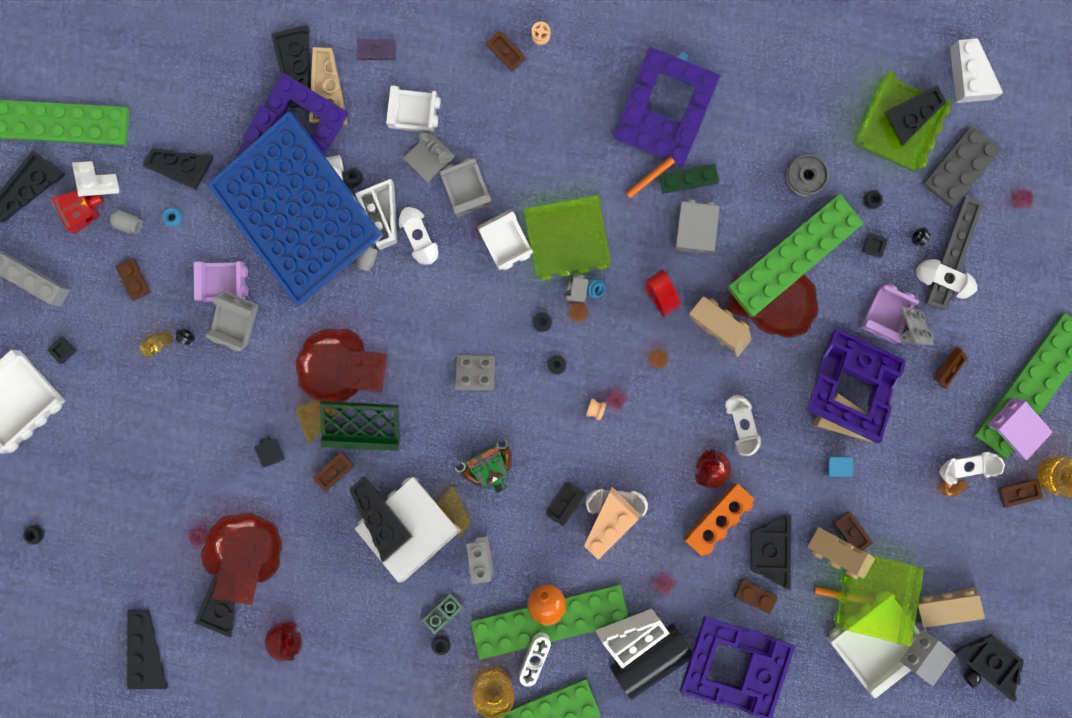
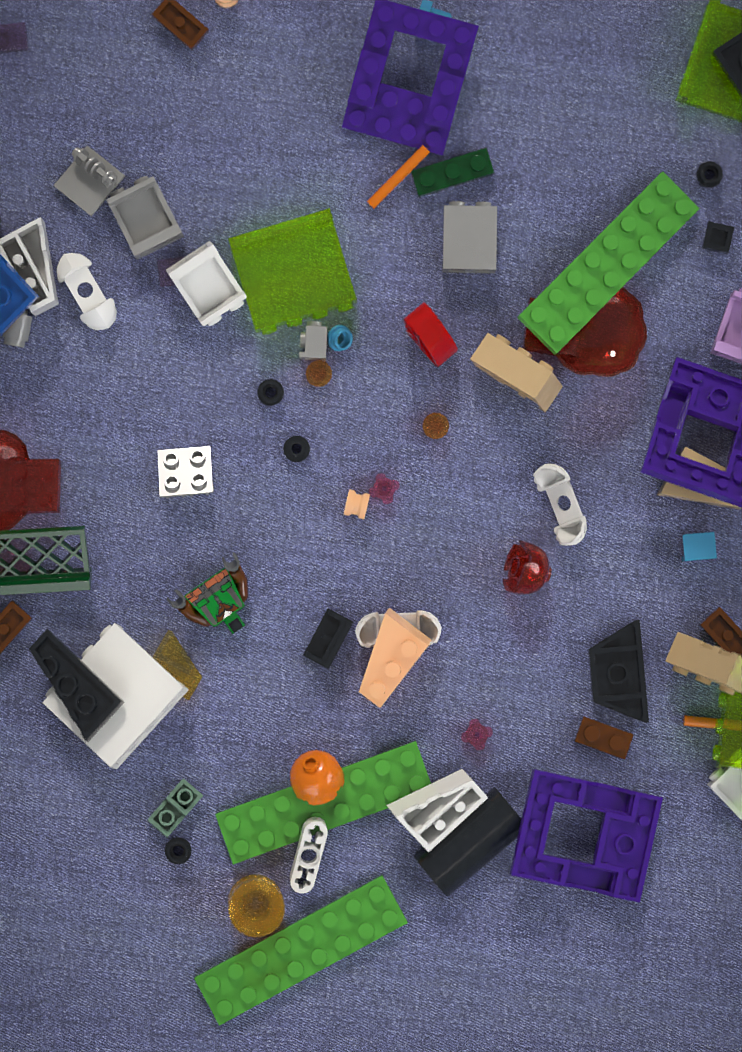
camera: 10 degrees left, 0 degrees up
(412, 110) = (60, 118): white panel -> none
(479, 559) = (218, 725): light grey panel -> none
(720, 508) = (574, 611): orange brick -> none
(815, 167) = (625, 139): flat silver wheel -> none

